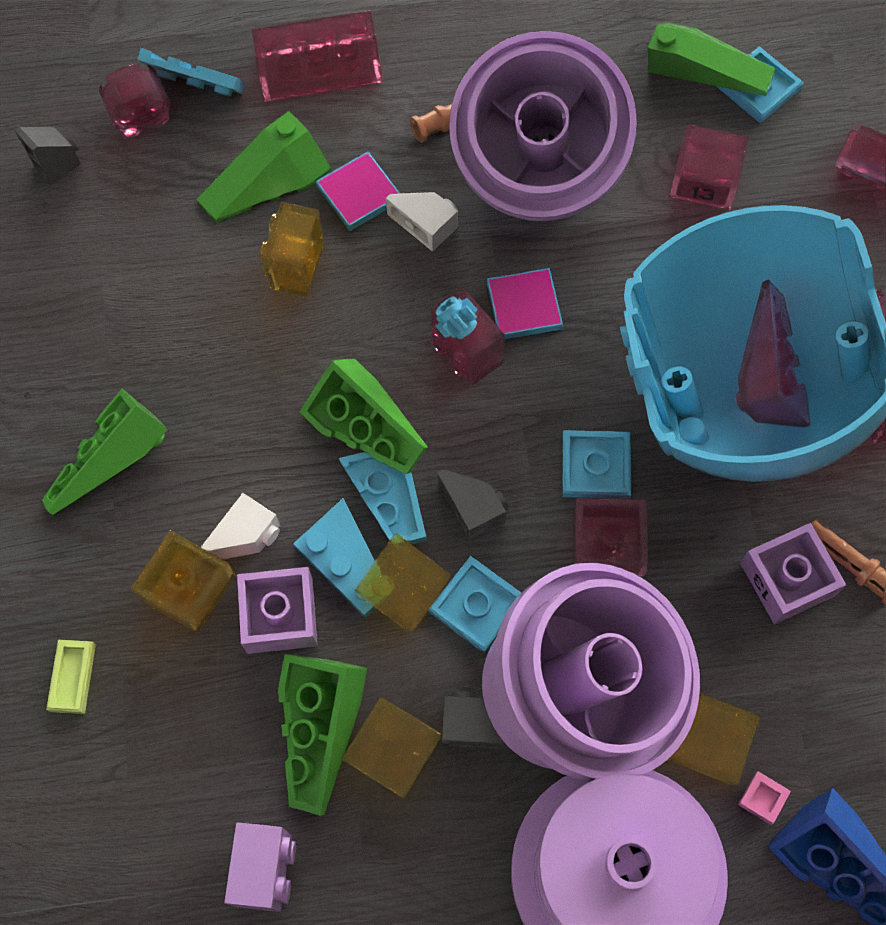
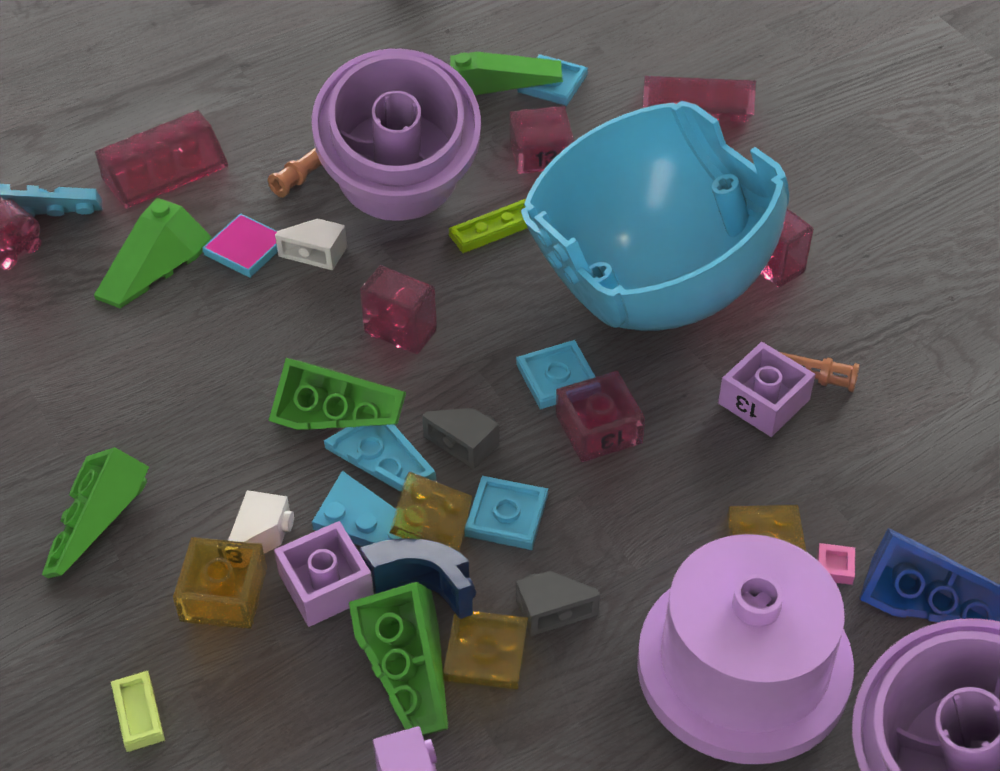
camera: 25 degrees left, 20 degrees down
(293, 248) = (206, 295): clear yellow brick -> none
(370, 634) = (421, 561): none -> dark blue arch
(456, 317) = (388, 280): medium azure gear -> none
(525, 303) = (443, 273): dark pink tile -> none
(592, 674) = (636, 497): lavender piece -> none
(608, 256) = (488, 227): none -> lime tile
(767, 371) = (665, 239): clear pink wedge -> none

